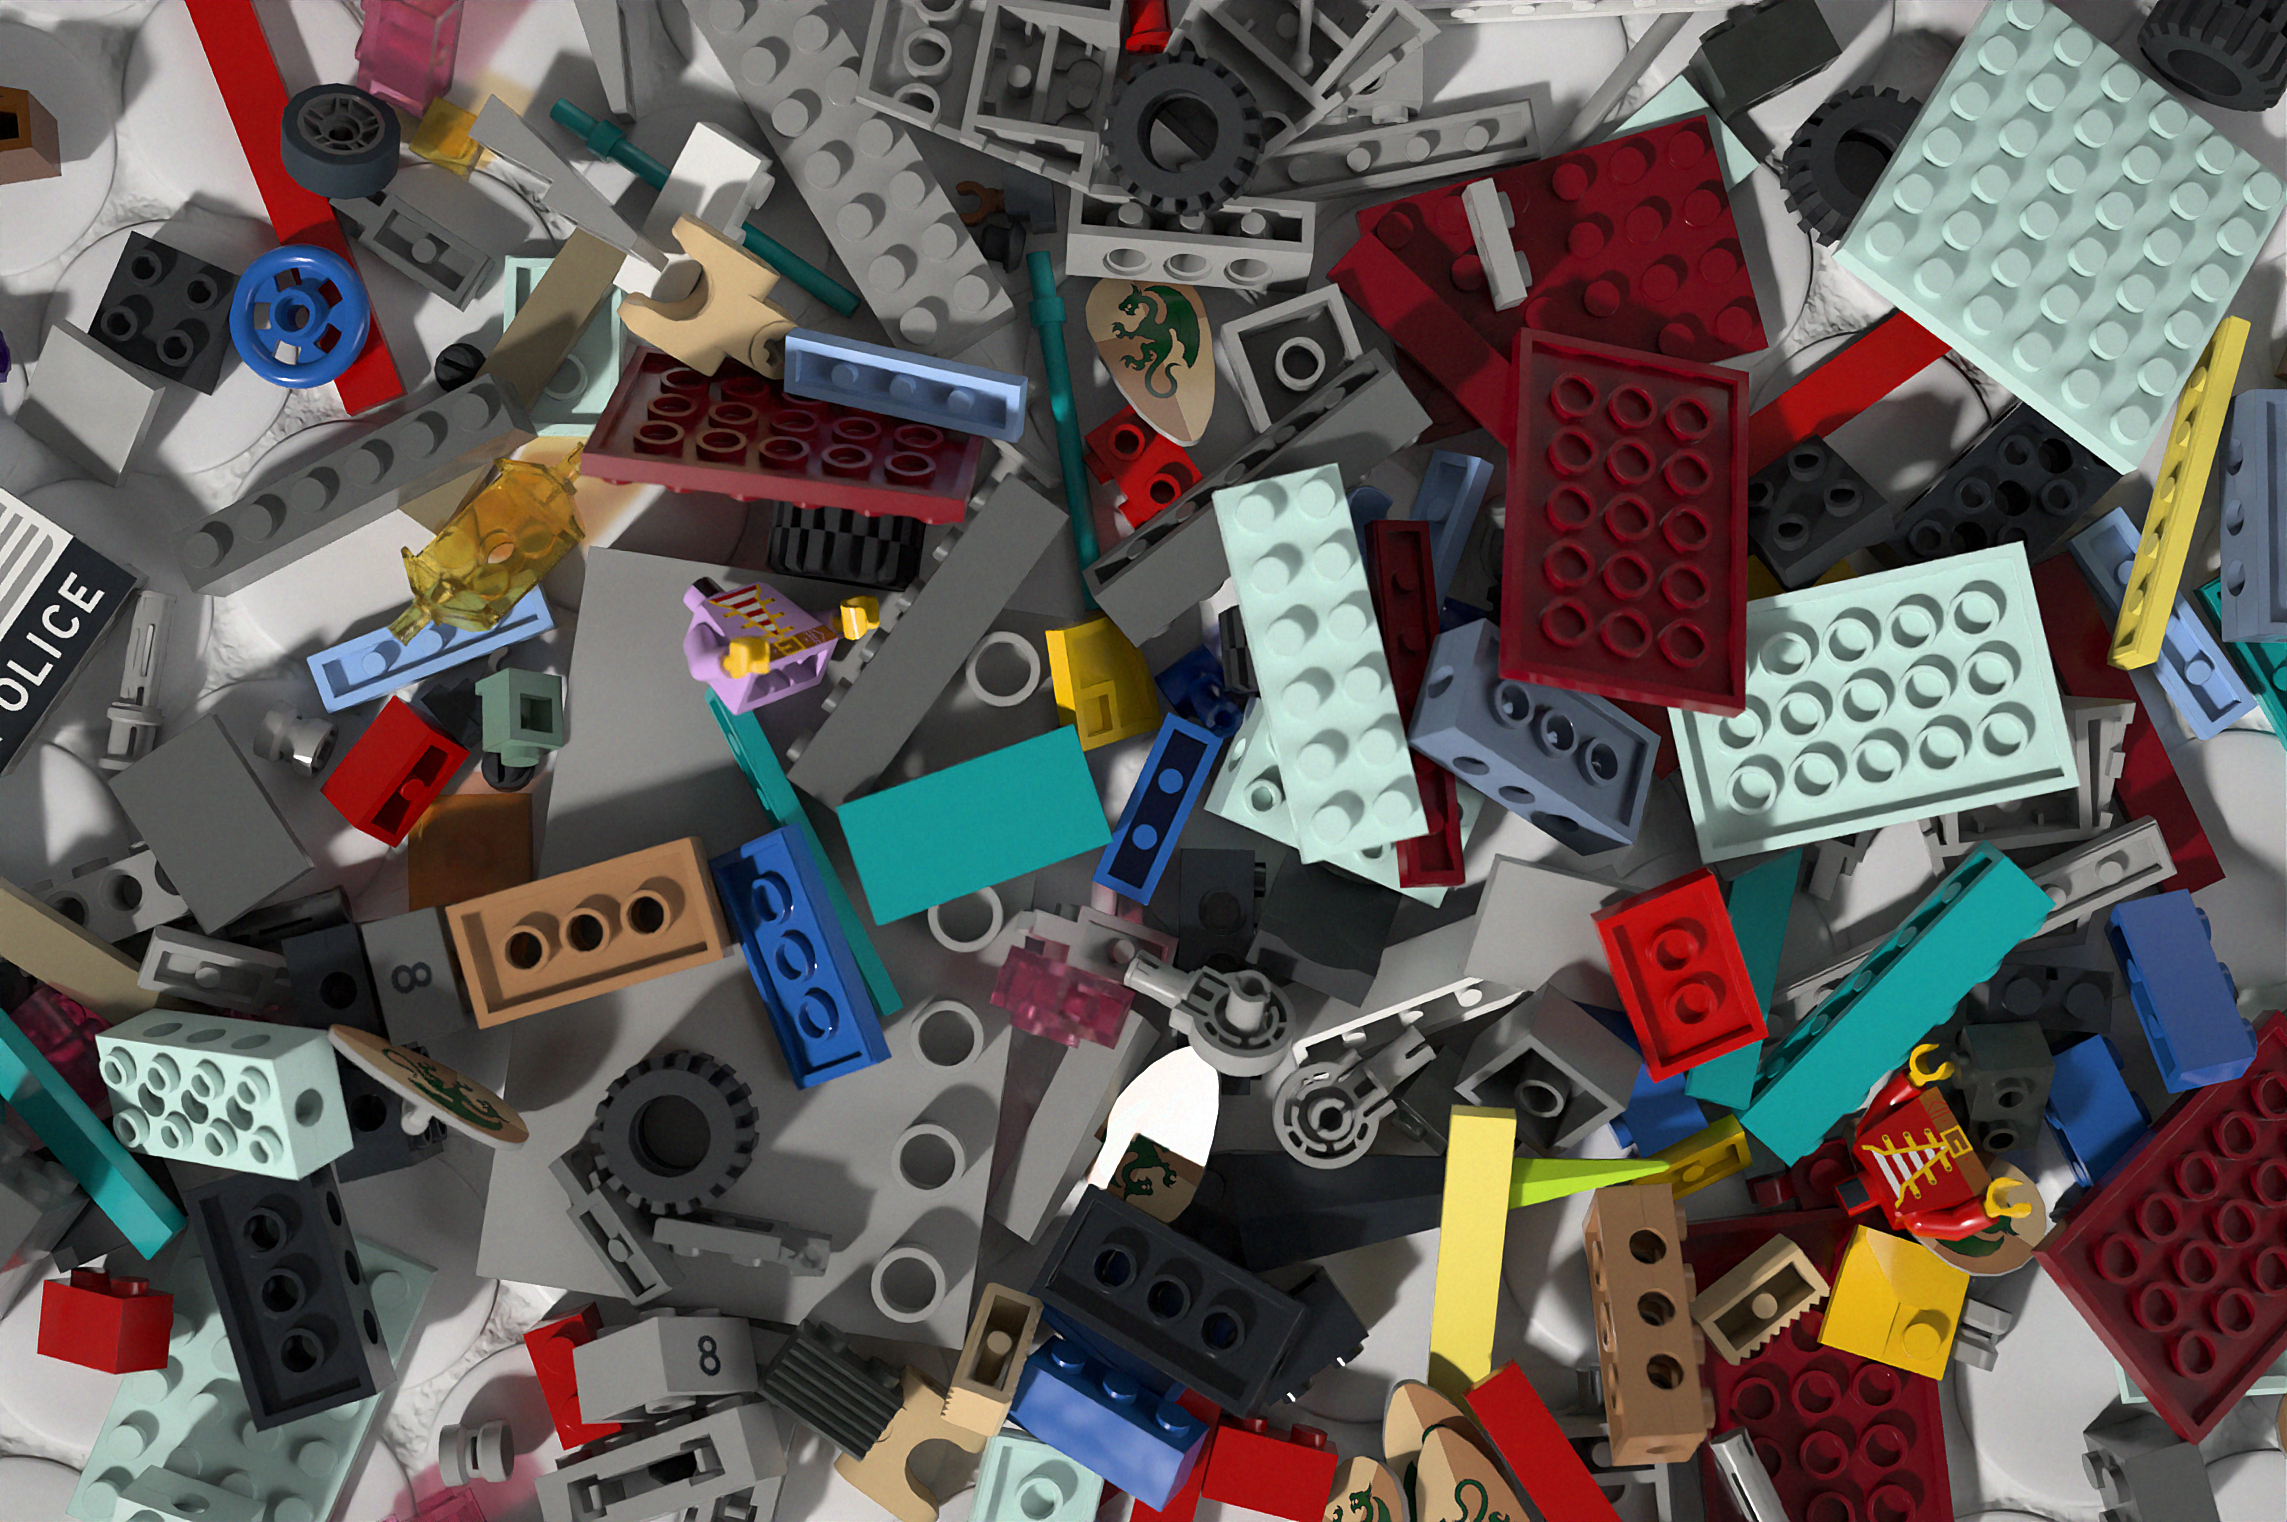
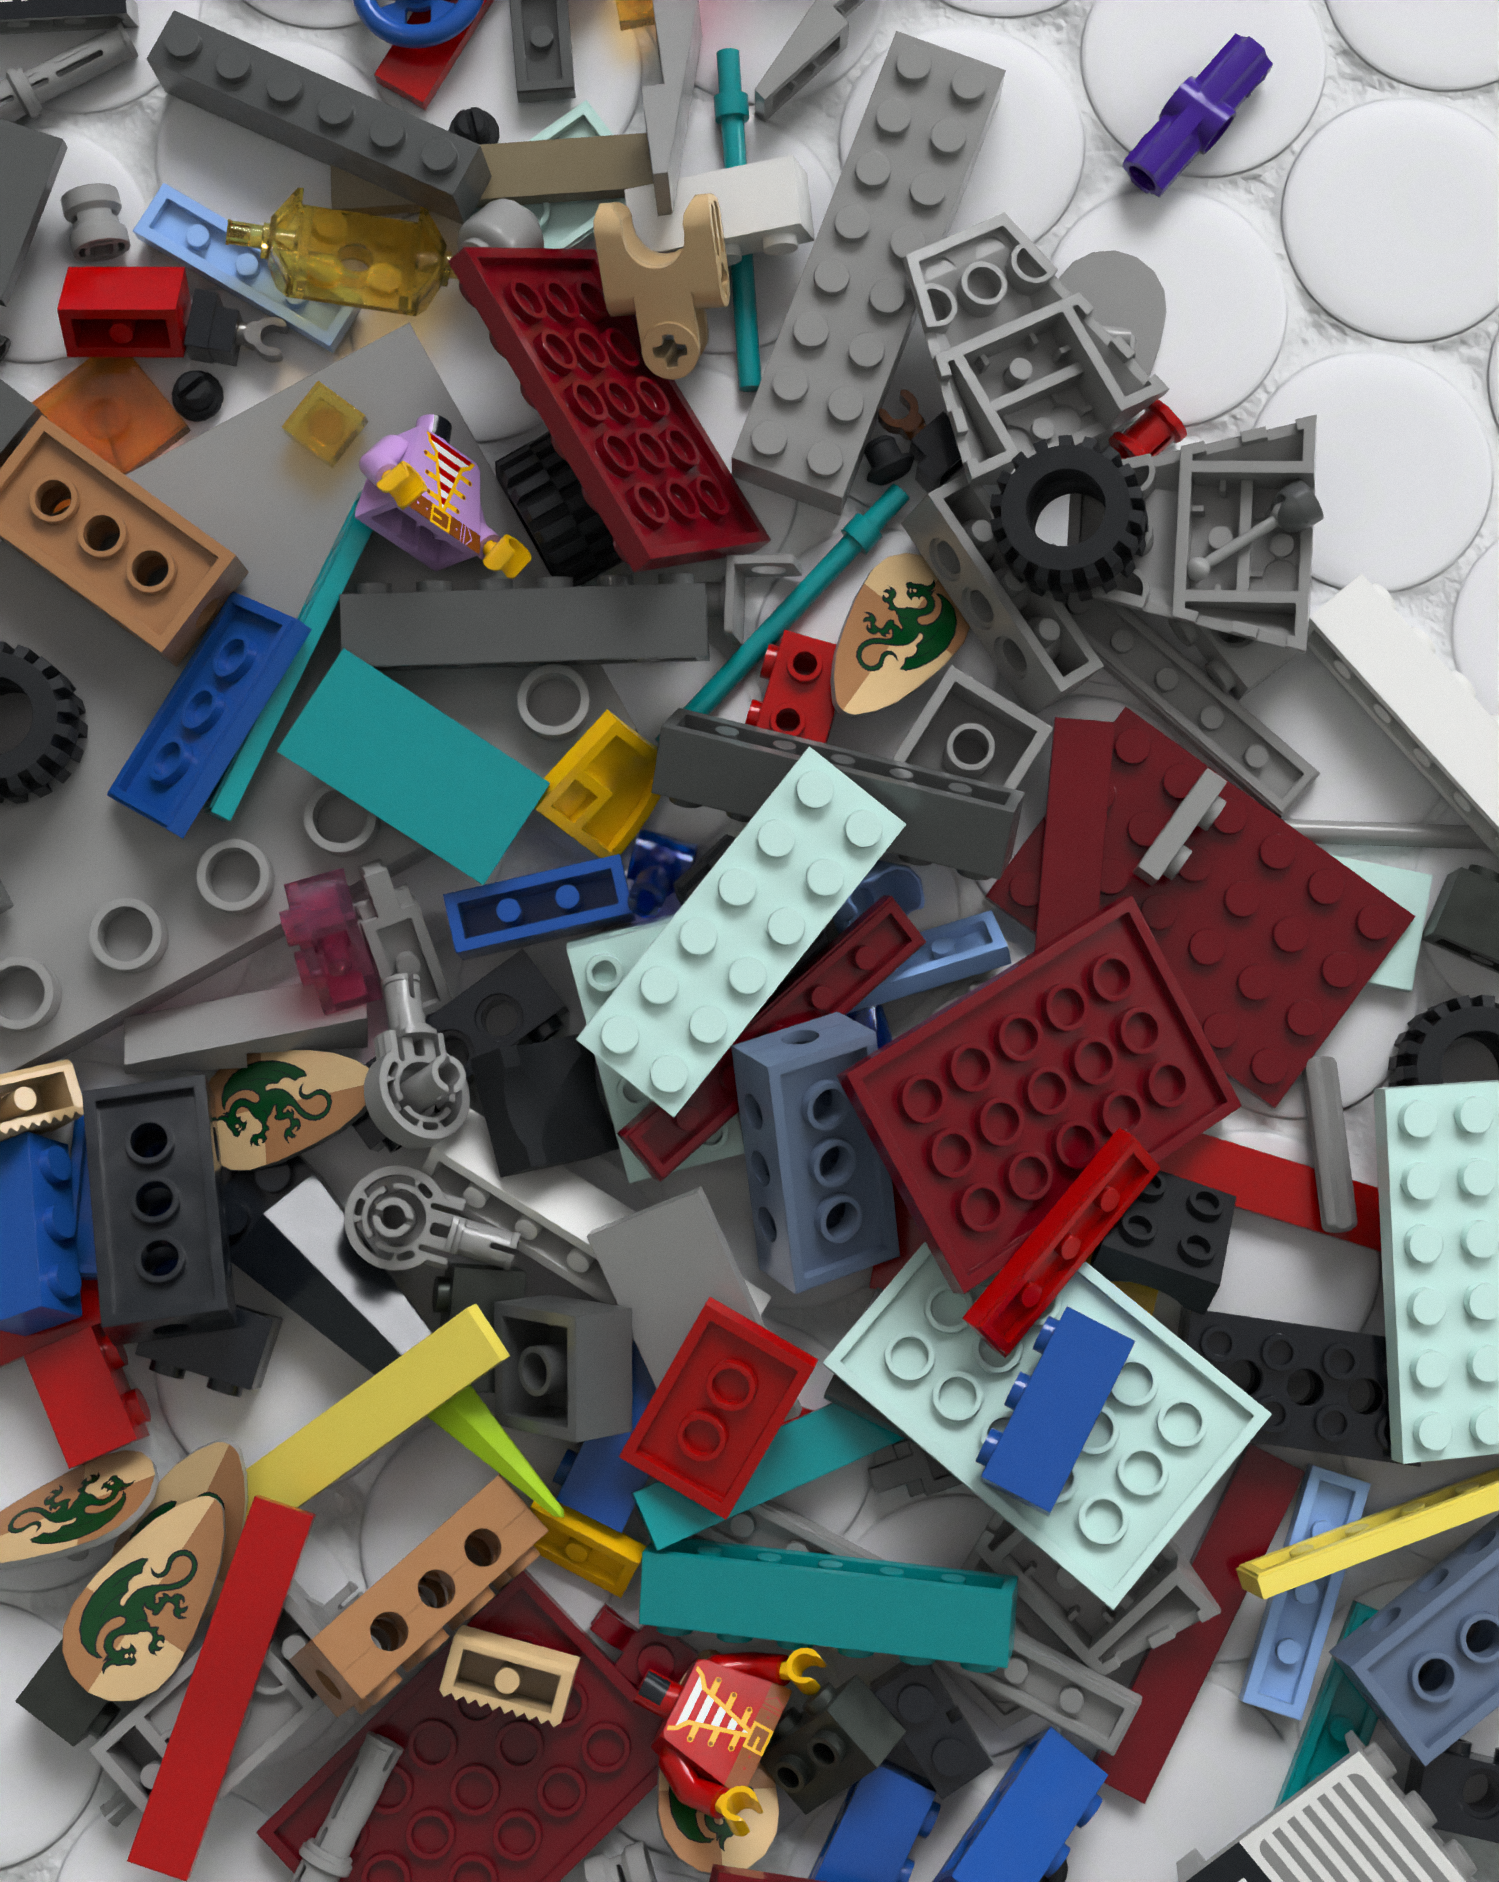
camera: 55 degrees right, 5 degrees down
(521, 715) = (253, 368): sand green brick -> none
(569, 414) = (501, 225): none -> light grey head
(625, 680) = (325, 424): none -> clear yellow plate
(905, 384) = (715, 461): light blue plate -> none
(1760, 600) = (1061, 1242): none -> red tile
(1833, 327) = (1329, 1145): none -> light grey axle
(1890, 709) = (1054, 1409): none -> blue brick
(1894, 1303) = (593, 1795): yellow plate -> none

